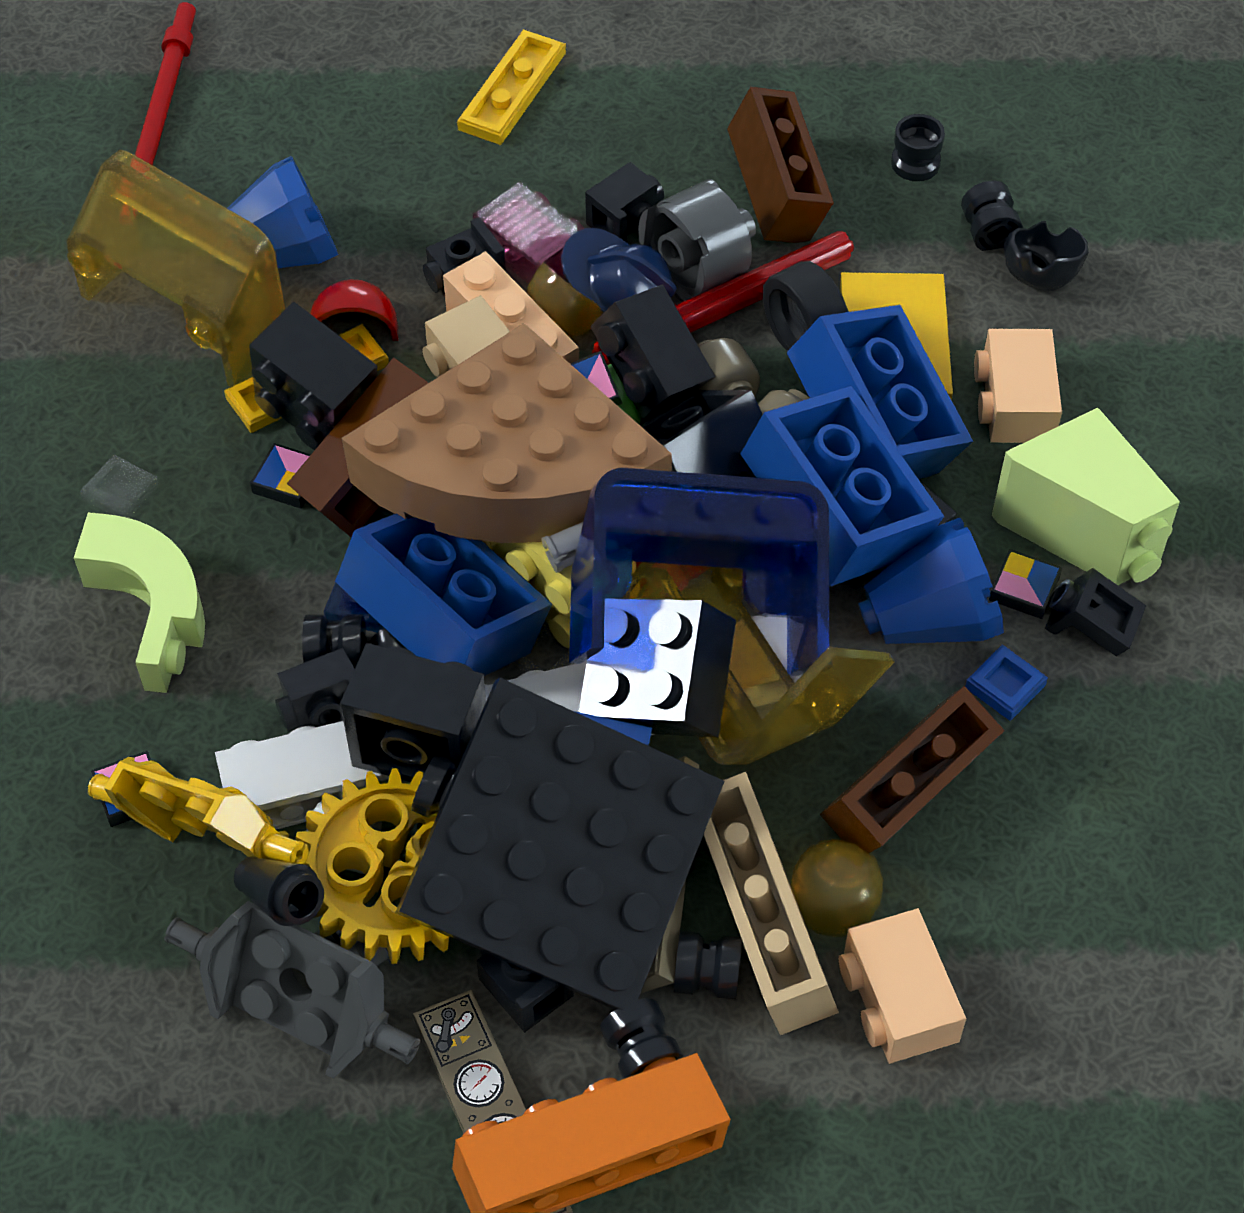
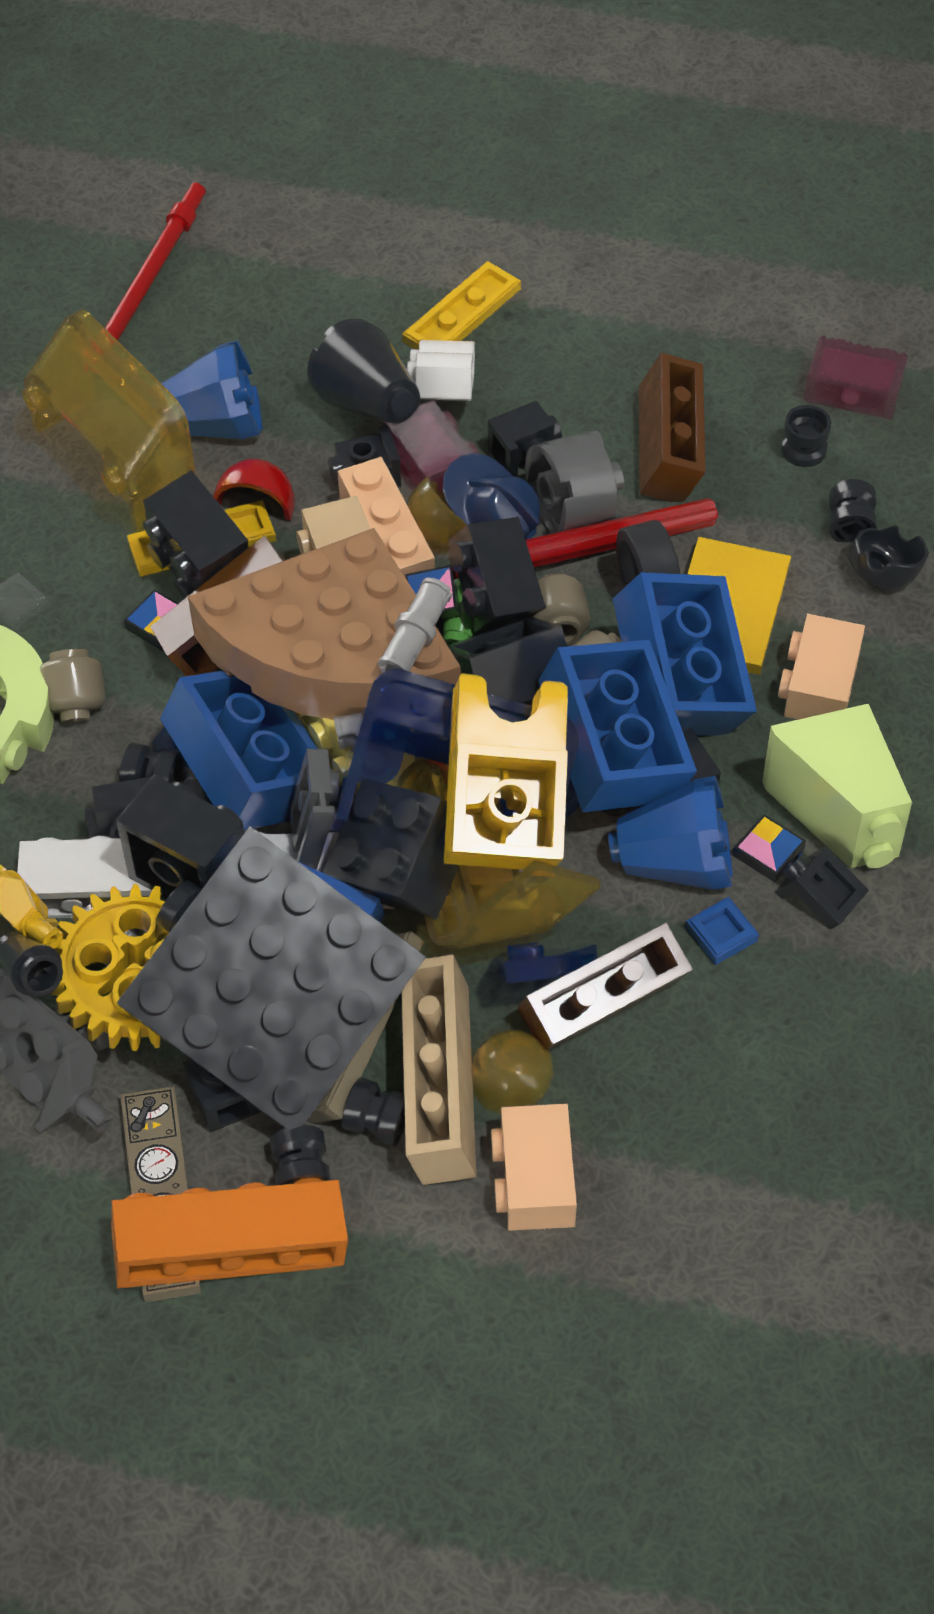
camera: 15 degrees right, 0 degrees up
(219, 564) = (74, 684): none -> dark tan head
(438, 168) = (362, 373): none -> black cone
(518, 149) = (443, 369): none -> white brick
(542, 640) = (310, 806): none -> dark grey plate
(615, 419) = (416, 626): none -> light grey pin
(766, 552) = (508, 762): none -> yellow brick
(823, 763) = (531, 962): none -> clear blue wing
(947, 79) = (855, 377): none -> clear pink brick

